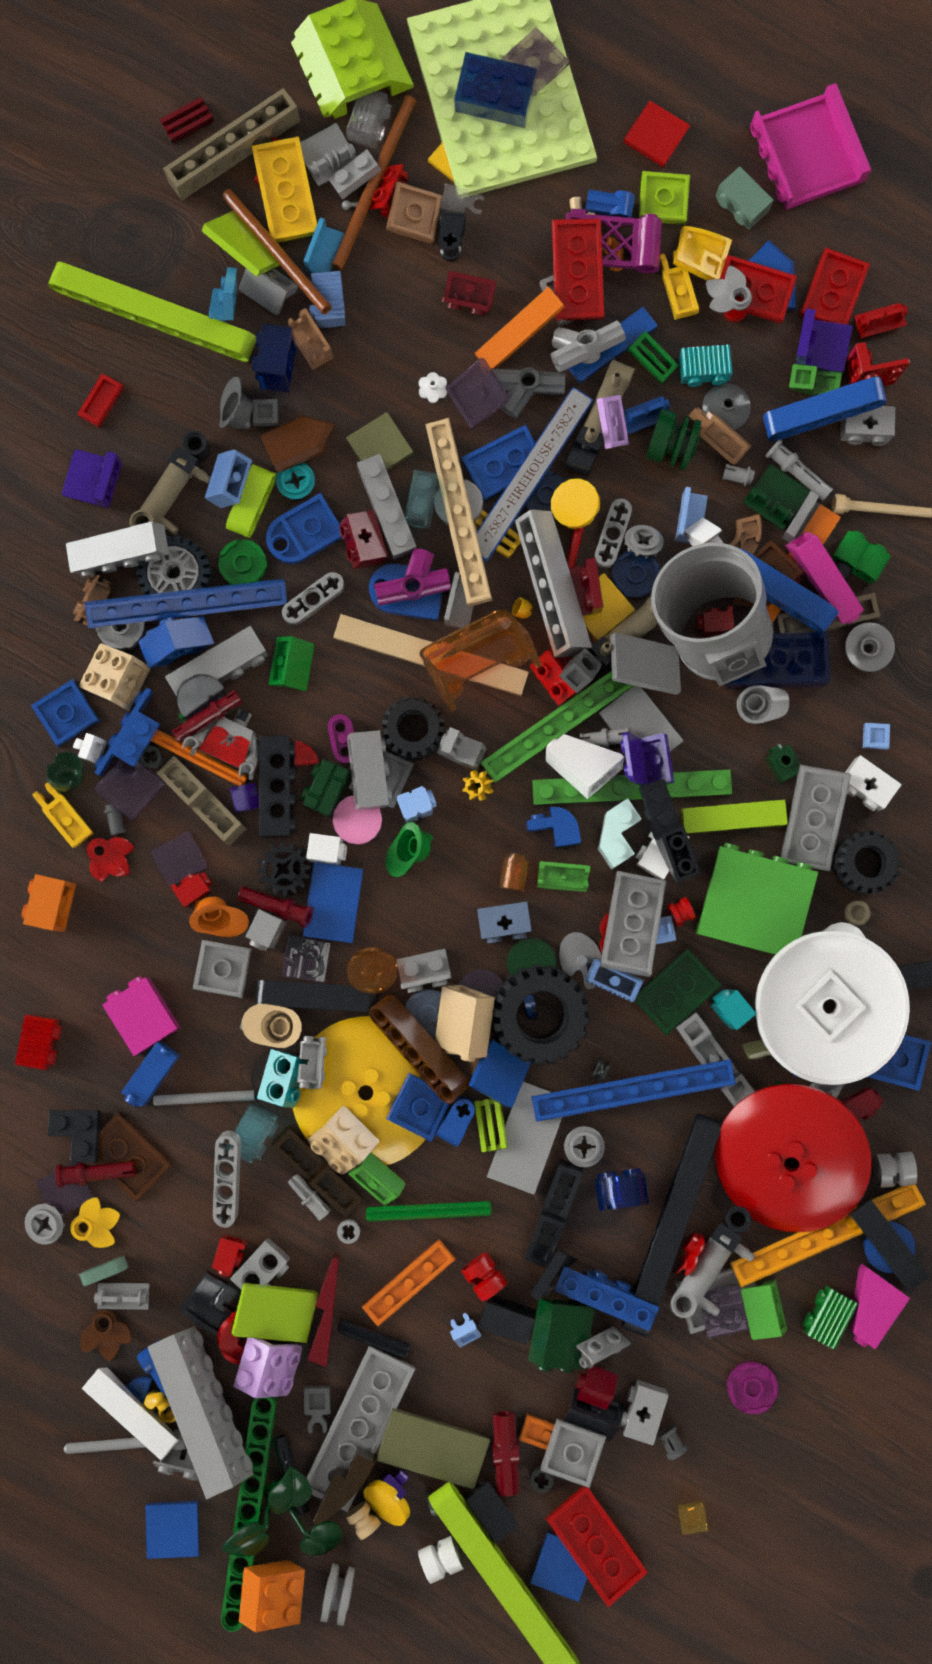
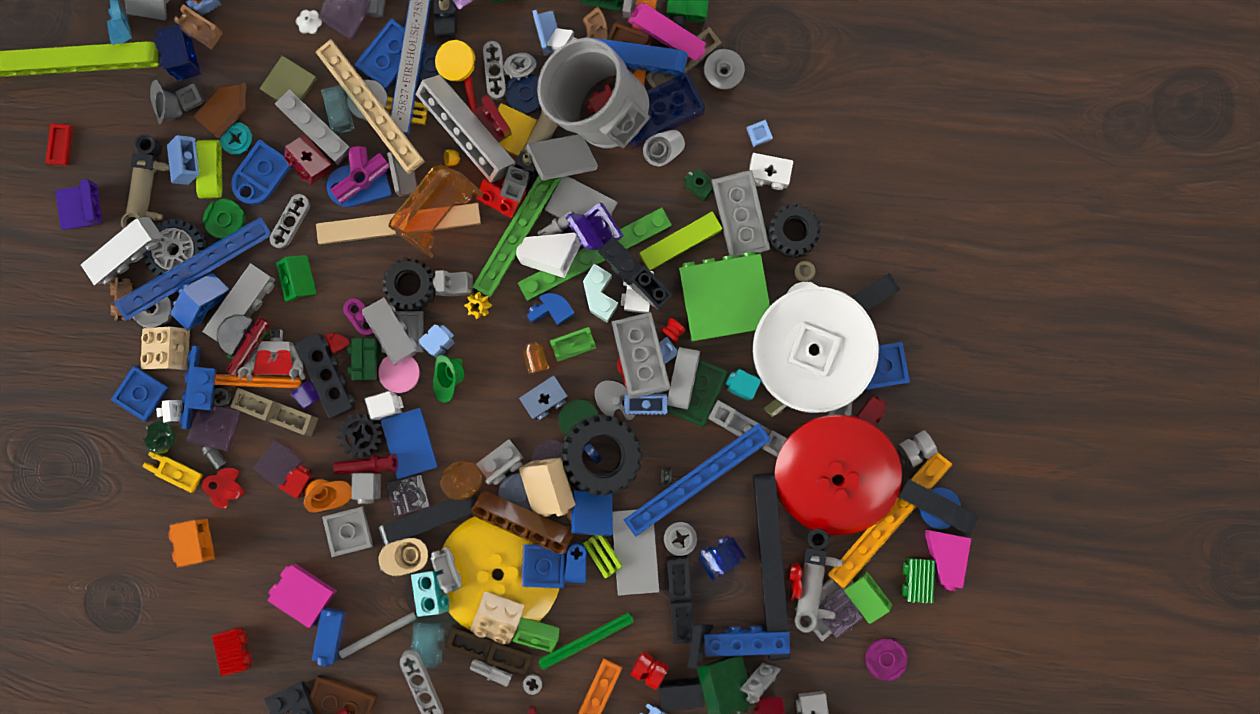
camera: 25 degrees left, 0 degrees up
(669, 970) = (683, 378): none -> light grey beam

